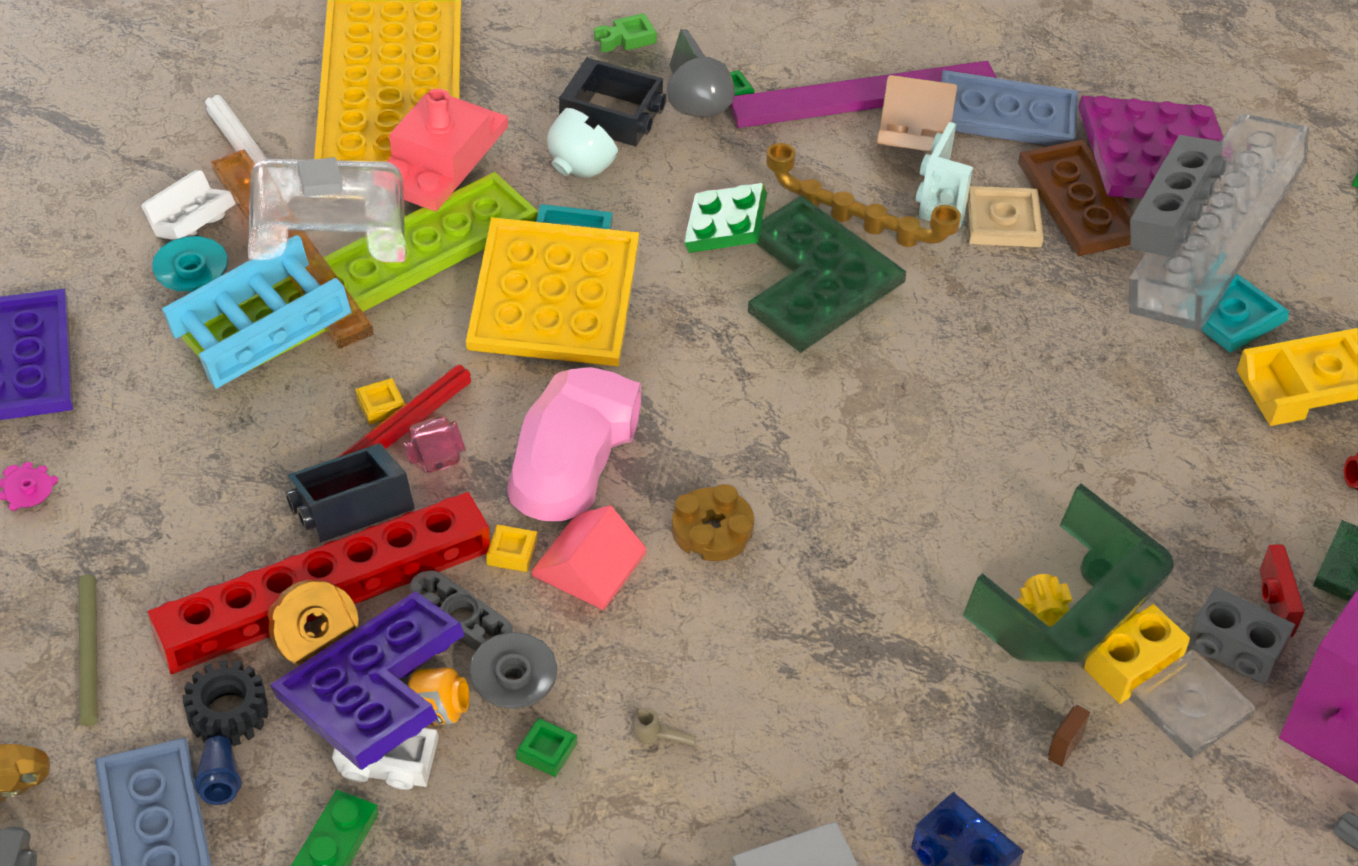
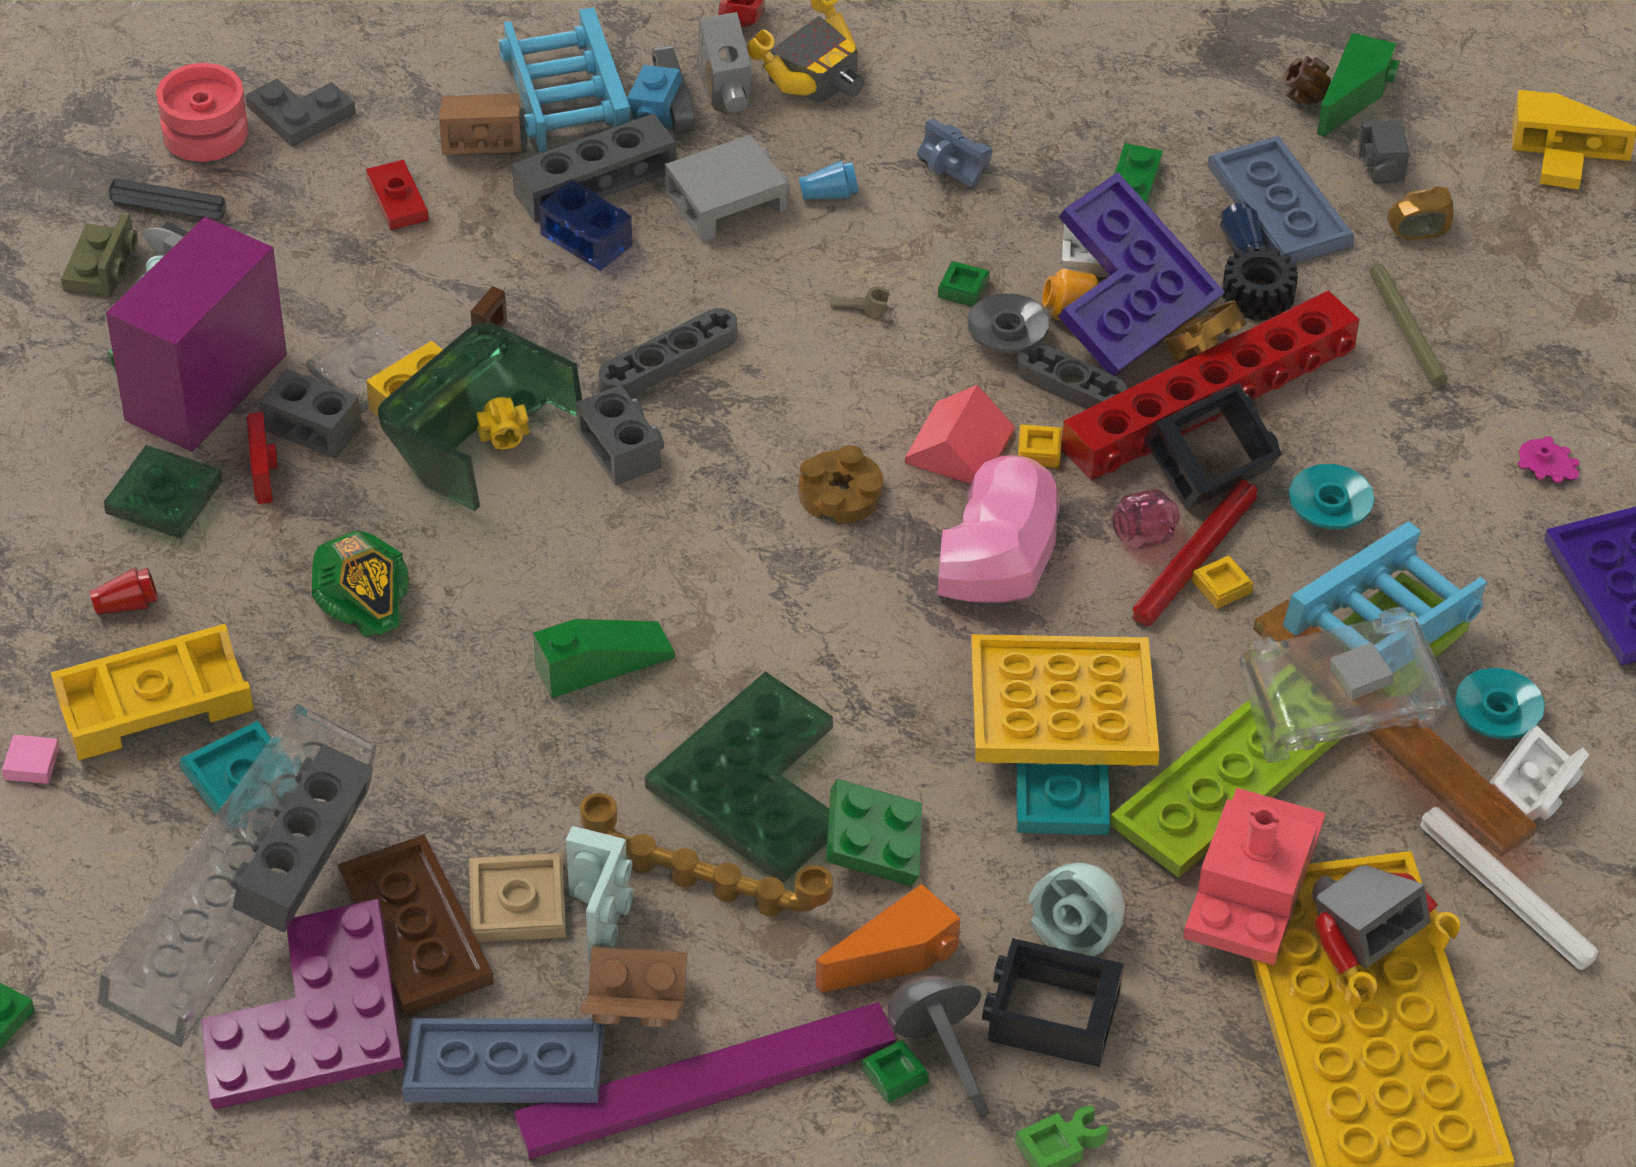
camera: 175 degrees right, 0 degrees up
(253, 451) = (1331, 496): none -> teal dish
(367, 95) = (1369, 917): none -> dark grey torso
(722, 147) = (892, 944): none -> orange slope
(870, 679) = (709, 331): none -> dark grey beam
(927, 581) = (619, 434): none -> dark grey brick
(947, 377) = (596, 650): none -> green slope
(1164, 455) = (360, 581): none -> helmet

